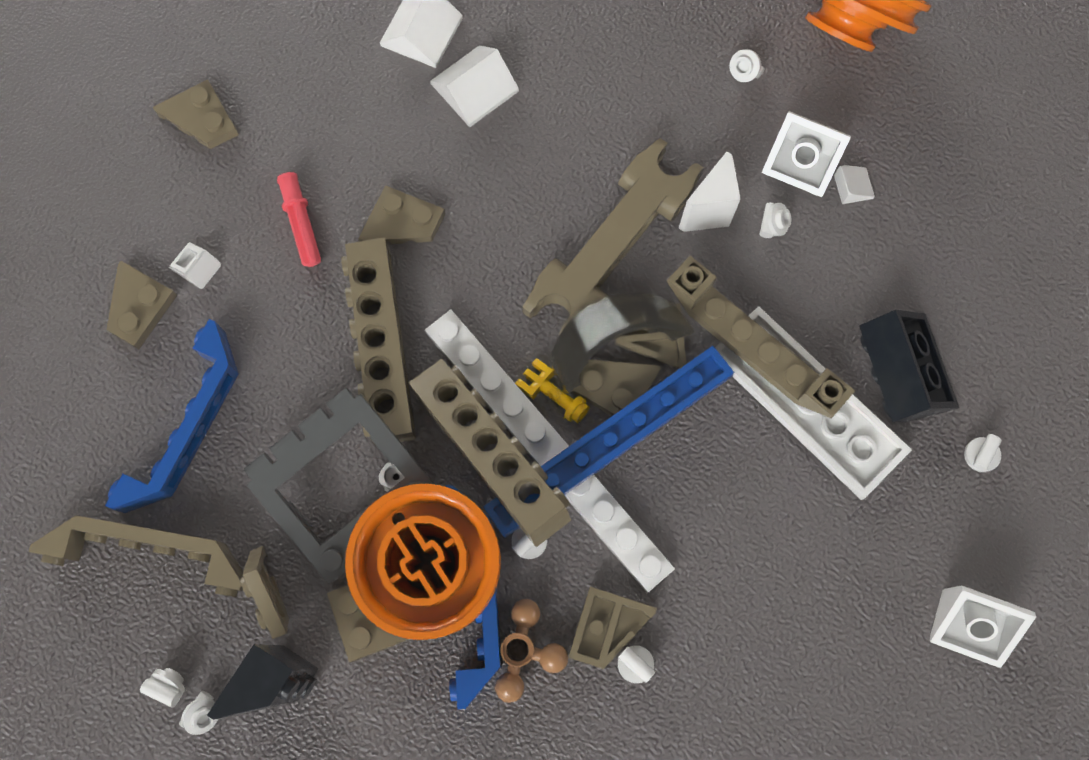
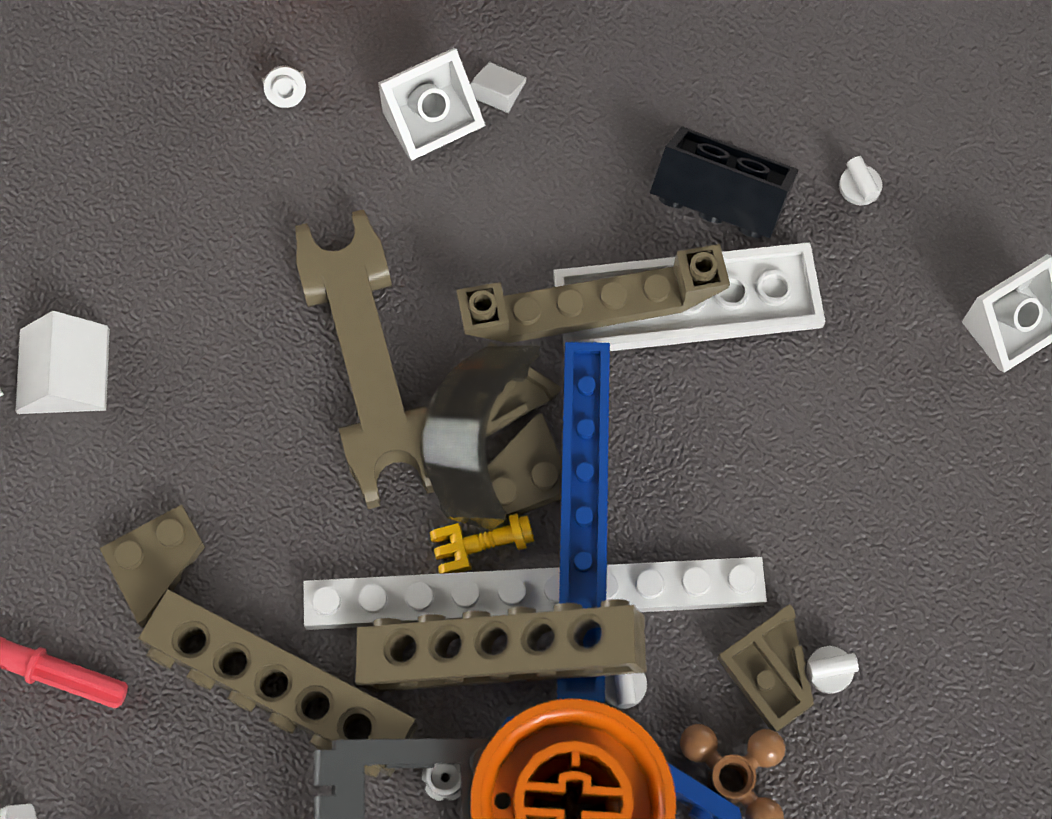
camera: 55 degrees left, 5 degrees down
(714, 199) = (411, 221): white slope -> none
(775, 220) = (474, 186): white plate -> none

